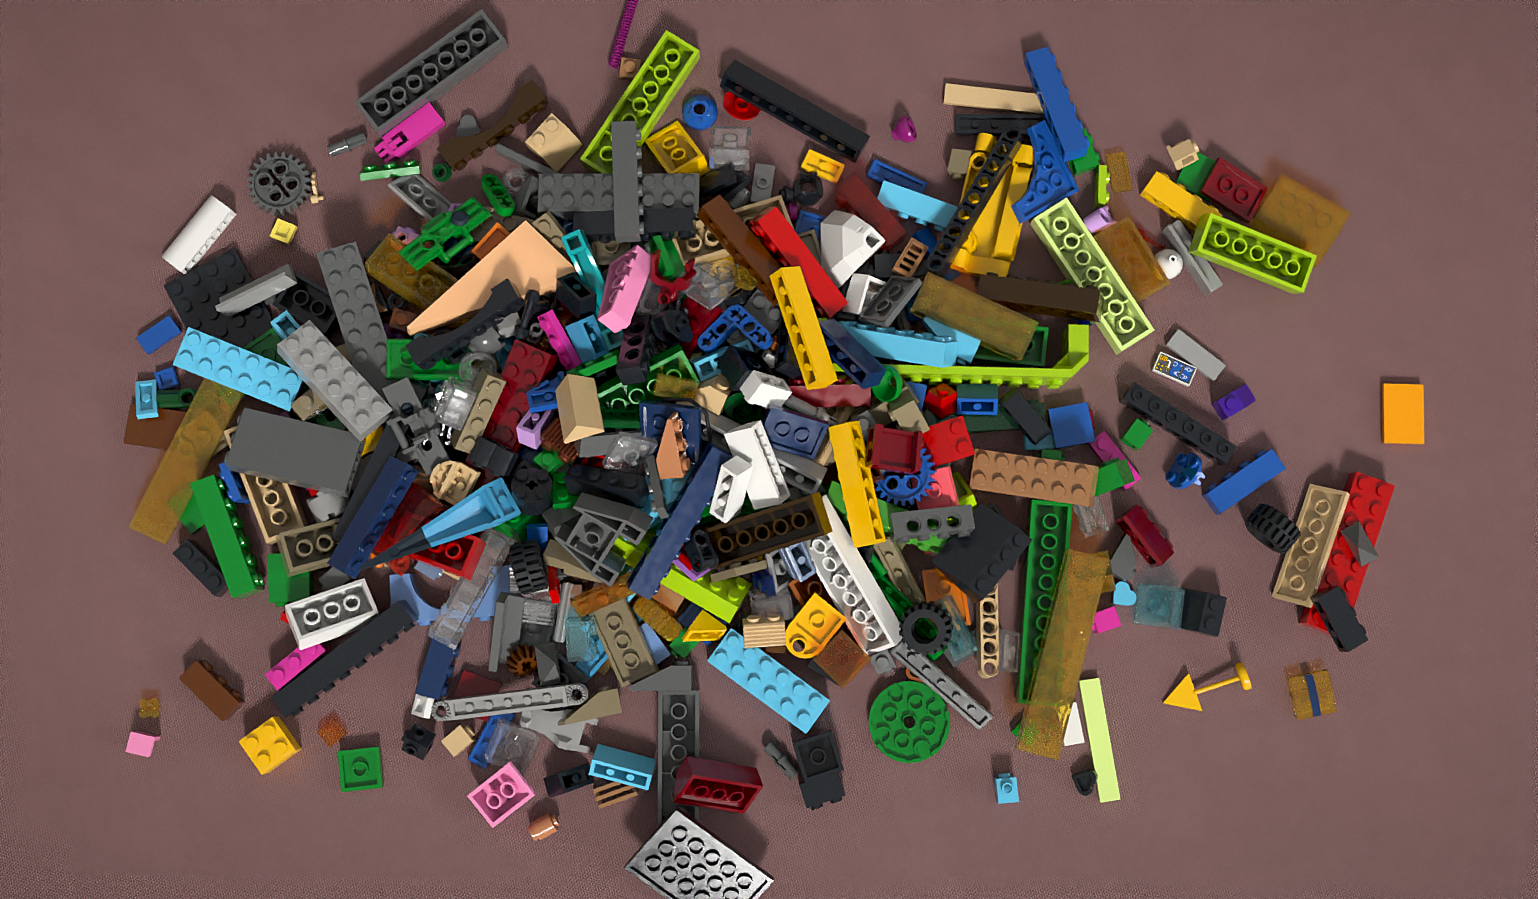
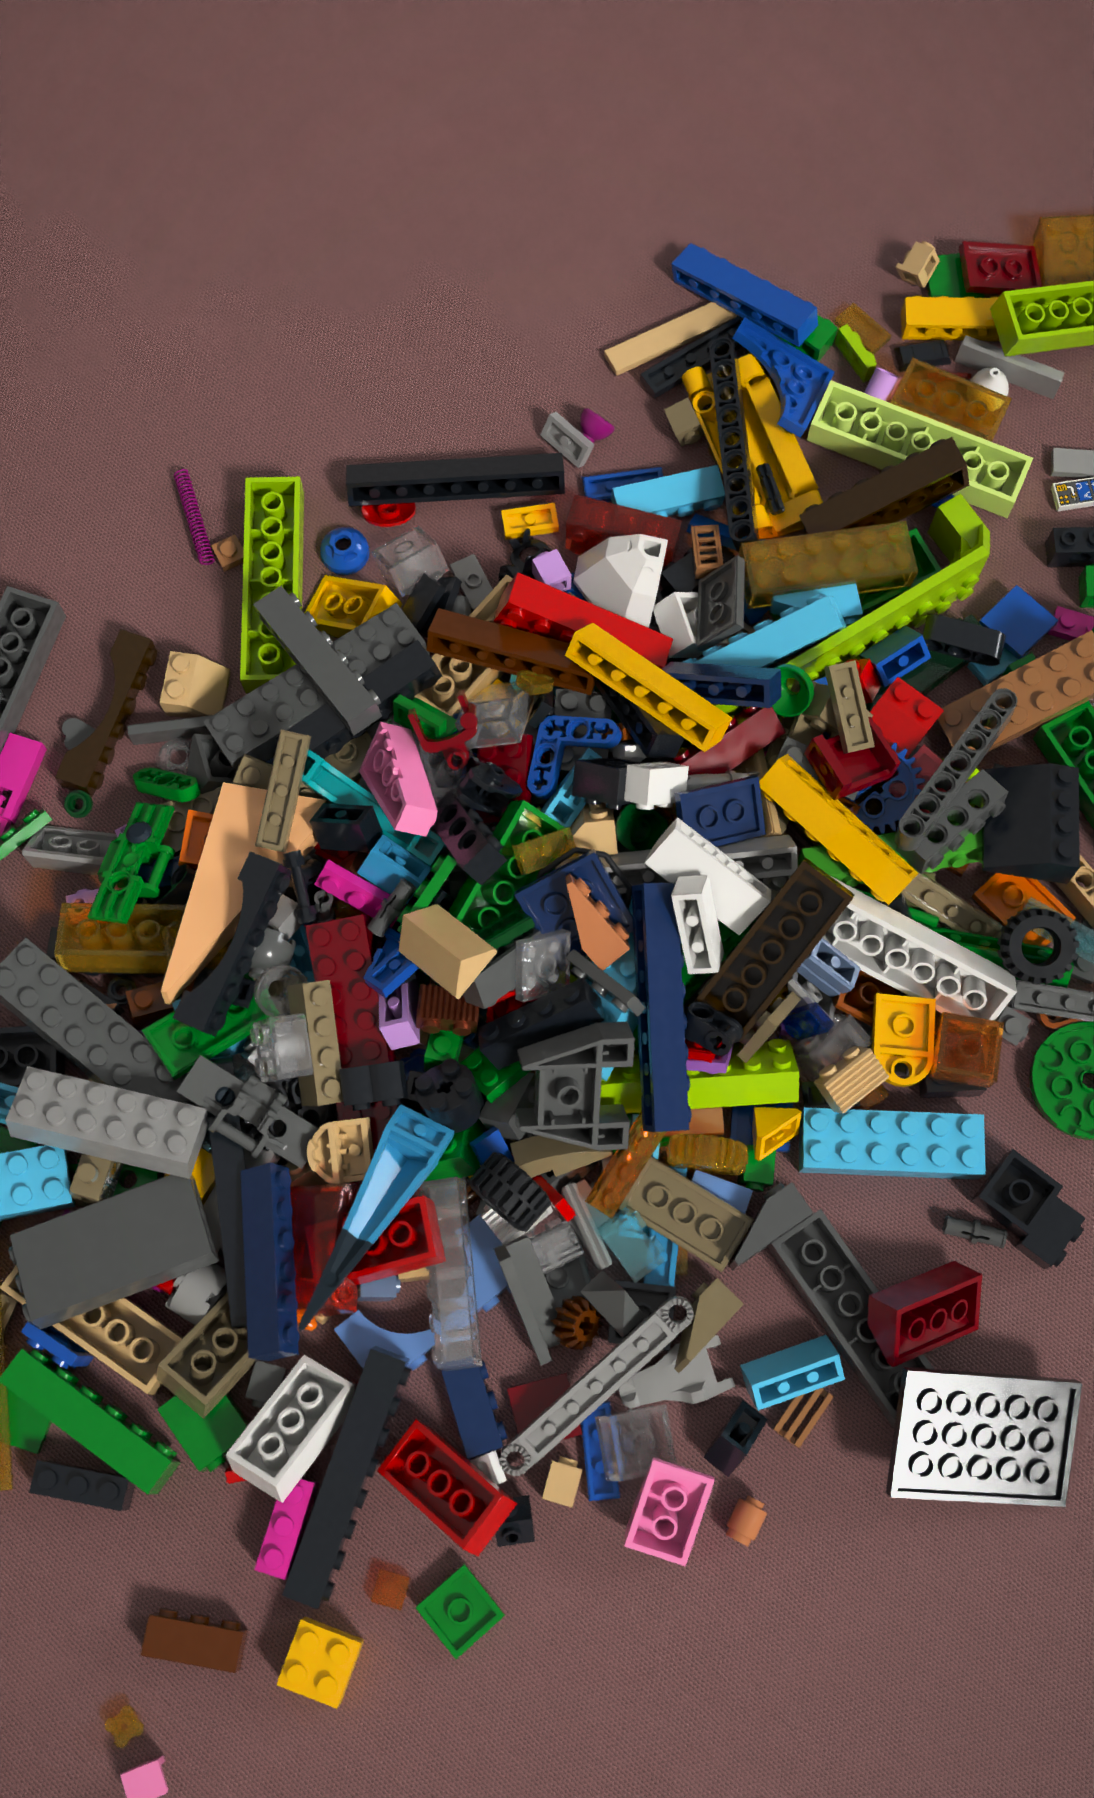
camera: 30 degrees left, 10 degrees down
(392, 701) = (447, 1488): none -> red brick
(551, 252) = (283, 791): none -> dark tan tile
(569, 361) = (391, 907): none -> dark grey pin
(809, 210) = (551, 570): none -> lavender brick
(881, 128) = (567, 439): none -> light grey plate
(912, 418) = (849, 706): none -> dark tan plate
(959, 488) = (953, 780): none -> dark grey beam
(980, 243) = (770, 489): none -> black axle
(1143, 214) = (932, 352): none -> black tile

